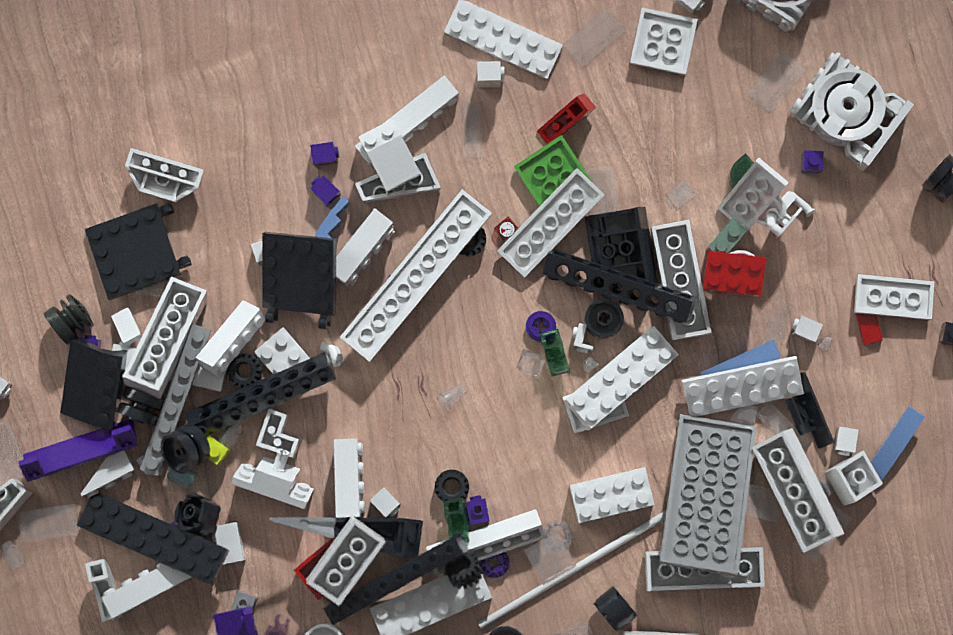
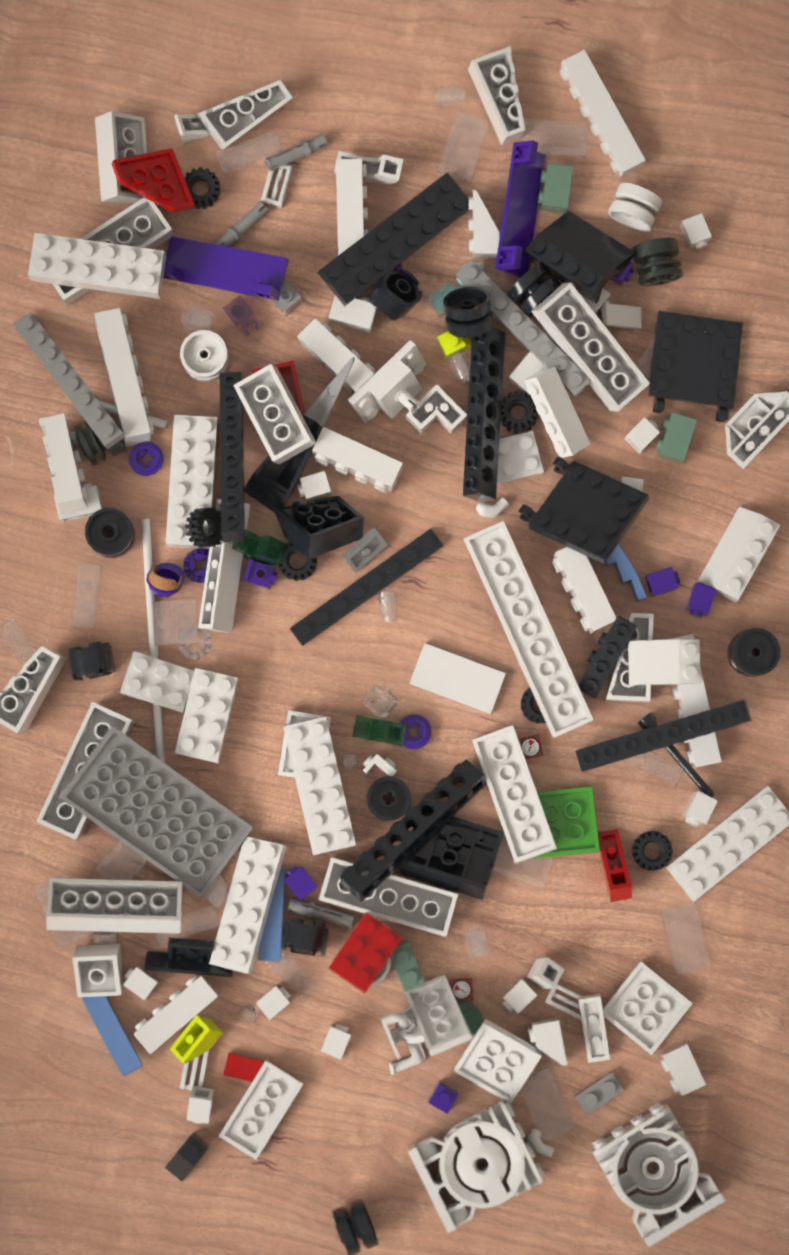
camera: 110 degrees right, 0 degrees up
(28, 301) = (695, 231): none -> white brick
(32, 359) = (635, 207): none -> white wheel
(46, 431) = (556, 188): none -> sand green brick
(203, 236) = (676, 437): none -> sand green brick
(214, 263) = (642, 434): none -> white brick
(272, 142) = (738, 553): none -> white slope
(272, 538) = (332, 351): none -> white wedge
(347, 103) = (741, 655): none -> black wheel
(406, 204) = (606, 656): none -> black bracket
(415, 482) = (320, 525): none -> black wedge
(416, 437) = (364, 550): none -> light grey plate
(442, 146) = (648, 722): none -> black piece
(445, 421) = (366, 587): none -> black plate
(447, 128) = (663, 735): none -> black brick
(481, 313) = (457, 678): none -> white tile
(519, 583) = (165, 579): none -> piece
(539, 84) = (642, 841): none -> black tyre
(604, 548) = (157, 682): none -> white plate
(677, 130) = (545, 973): none -> white brick
(688, 86) = (552, 994): none -> white tile
(699, 72) = (594, 1028): none -> white plate
(704, 355) = (300, 882): none -> dark purple brick
(705, 142) = (518, 996): none -> white brick
(719, 327) = (320, 913): none -> light grey pin
(721, 189) = (462, 989): none -> tile
(725, 103) = (548, 1038): none -> white slope
(746, 45) = (599, 1093): none -> light grey plate
(746, 329) = (305, 938): none -> black brick
(763, 132) = (498, 1061): none -> white plate
(810, 72) = (537, 1144): none -> white arm
(812, 265) = (336, 1041): none -> white brick
(855, 399) = (176, 1014): none -> white brick
(867, 374) = (196, 1039): none -> neon yellow slope
(904, 360) = (183, 1085): none -> white tile
(915, 345) = (200, 1105): none -> white brick

